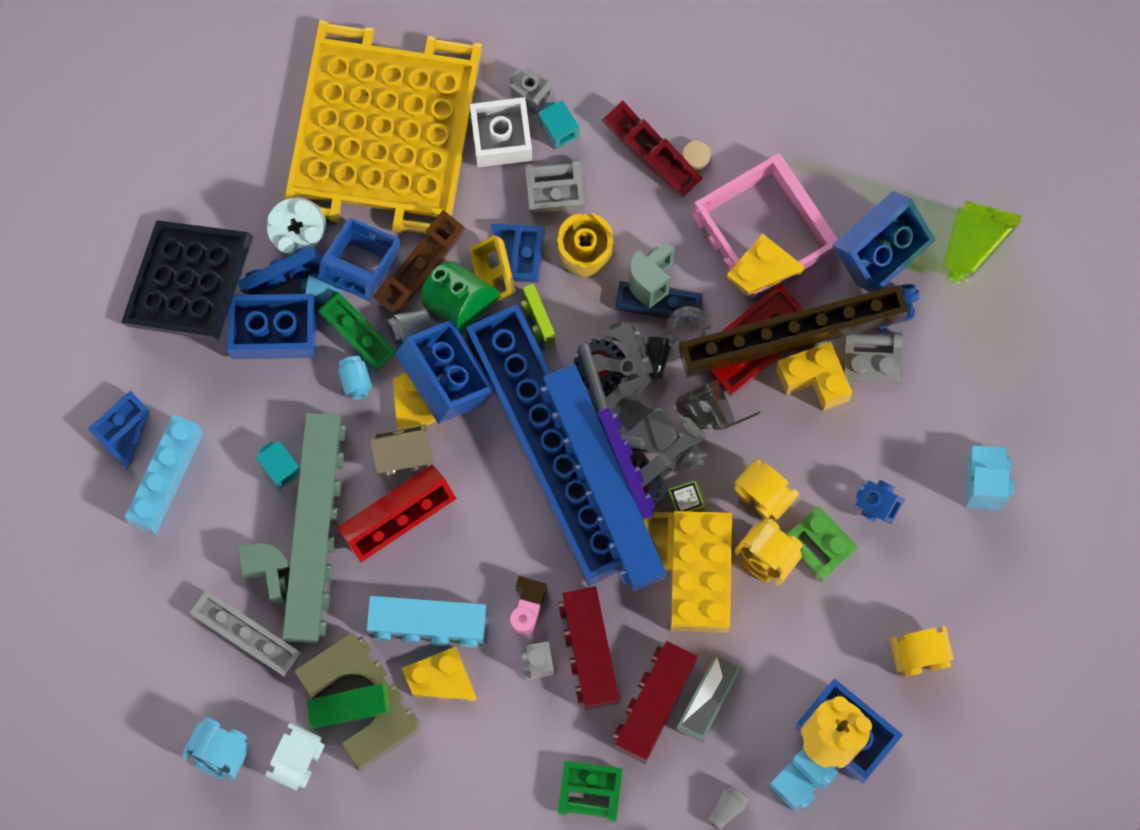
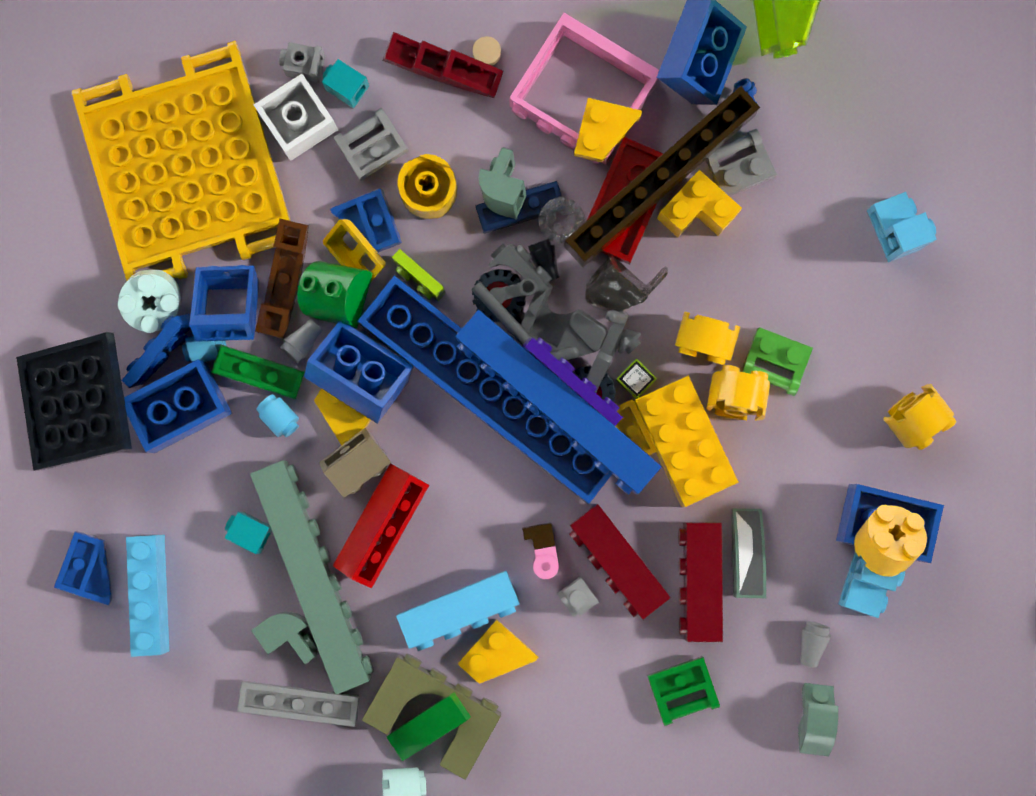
camera: 25 degrees left, 10 degrees up
(878, 501) = (823, 293): blue brick -> none

